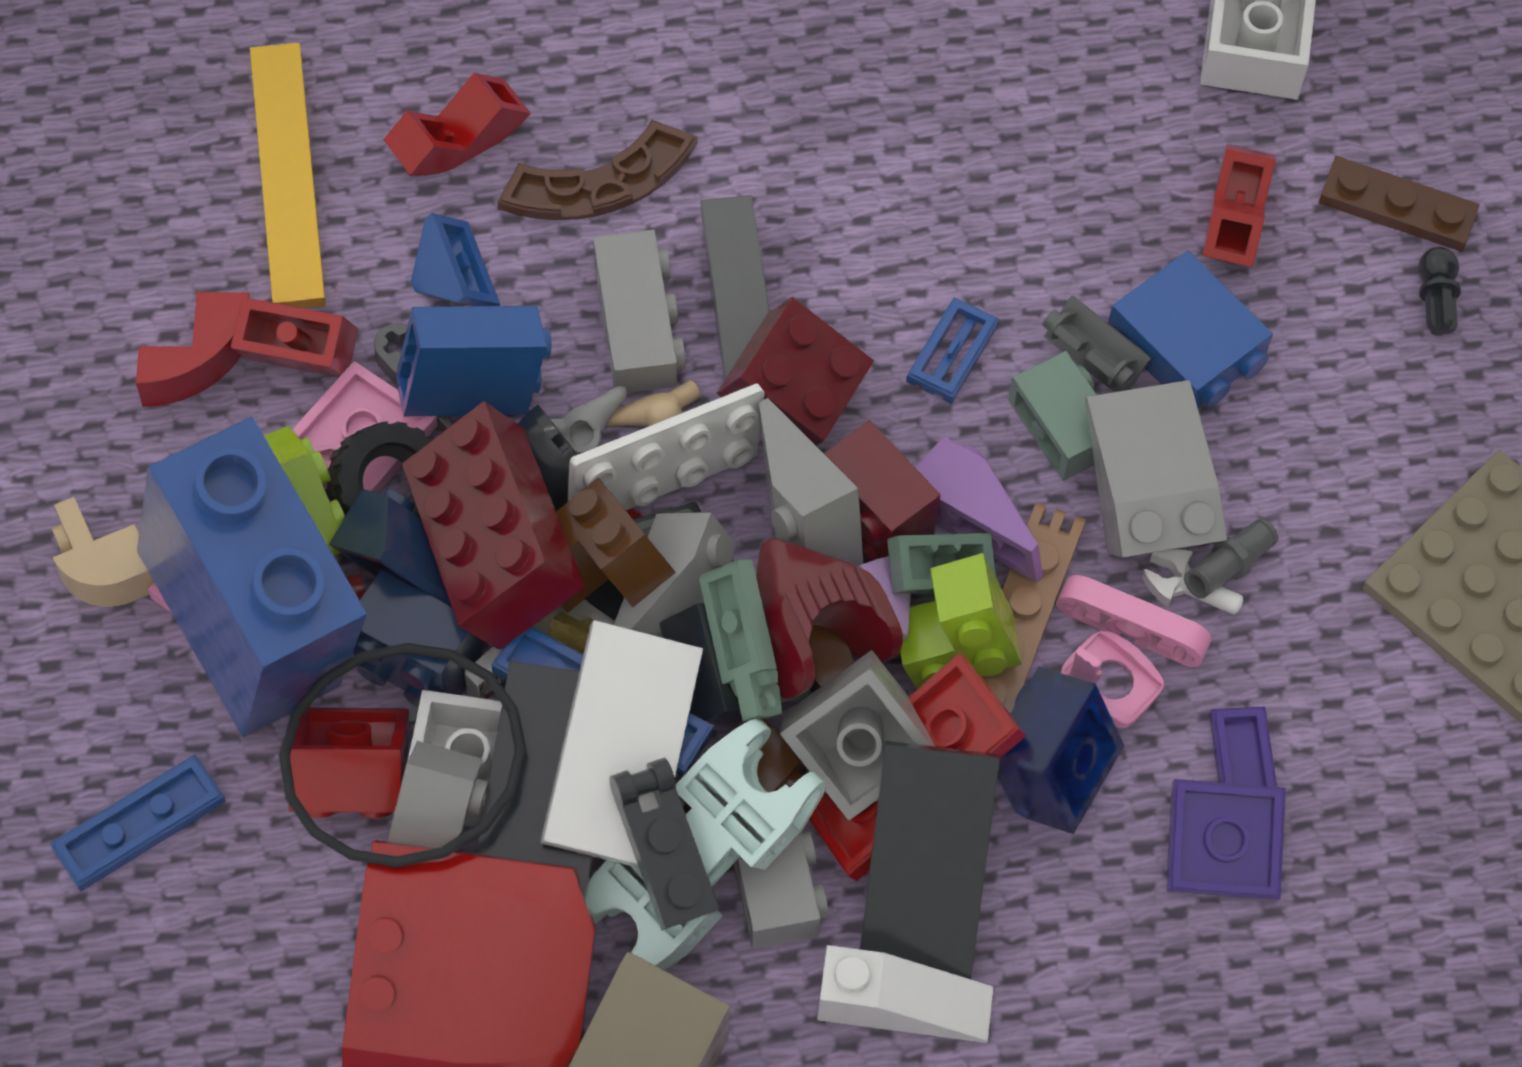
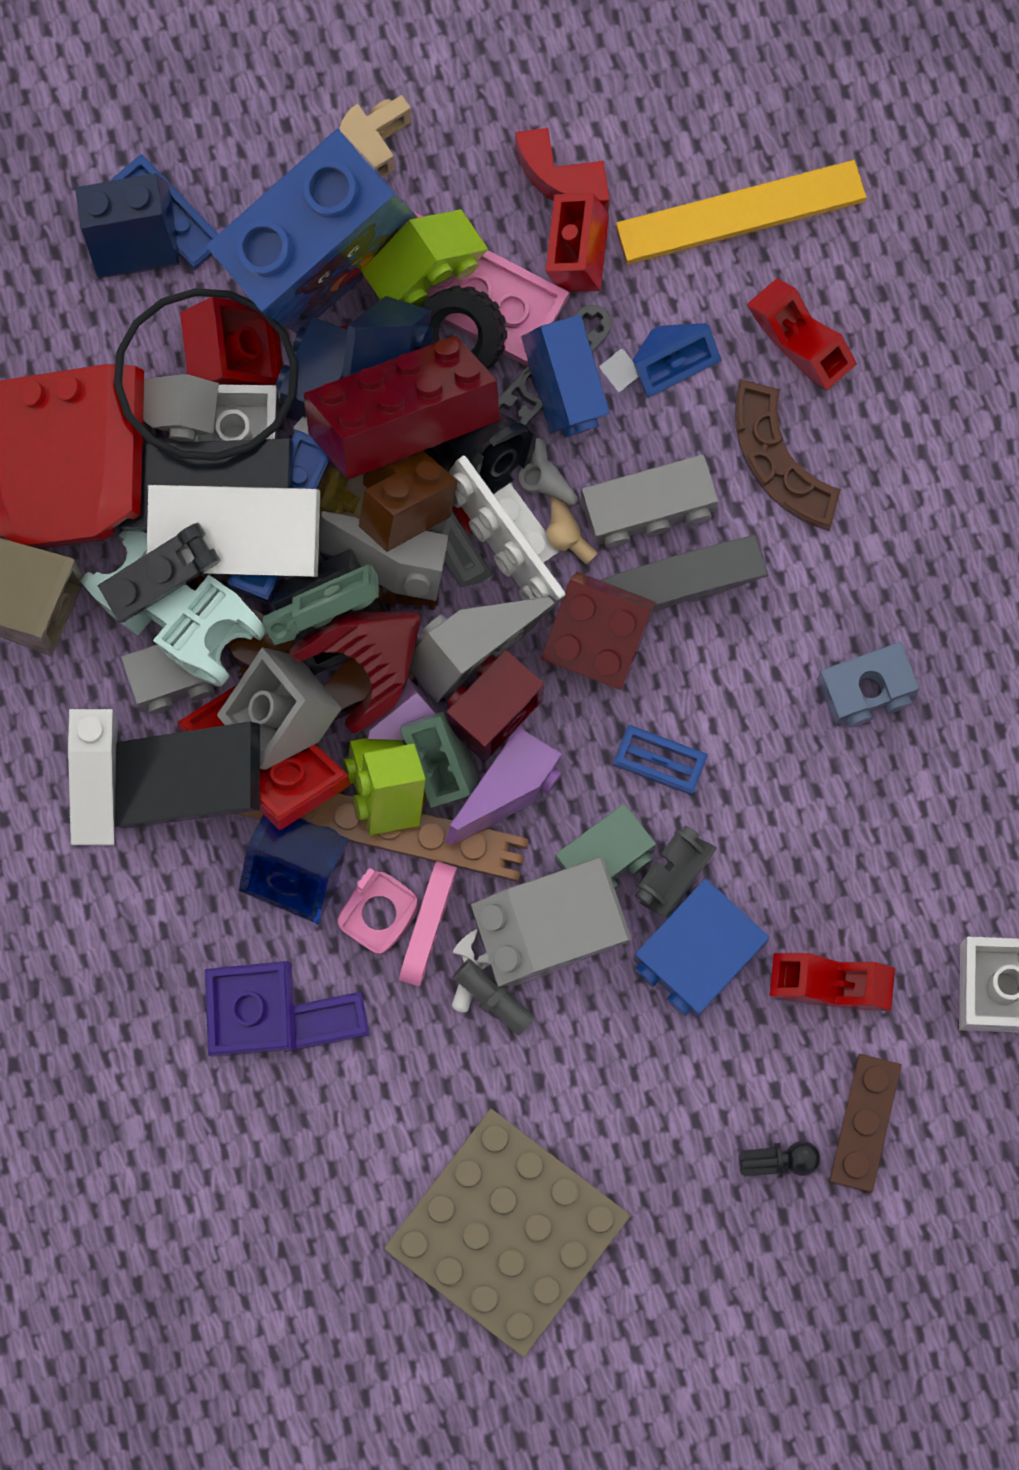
camera: 85 degrees right, 15 degrees up
(154, 860) = (128, 225): none -> dark blue slope
(879, 103) = (886, 667): none -> sand blue brick

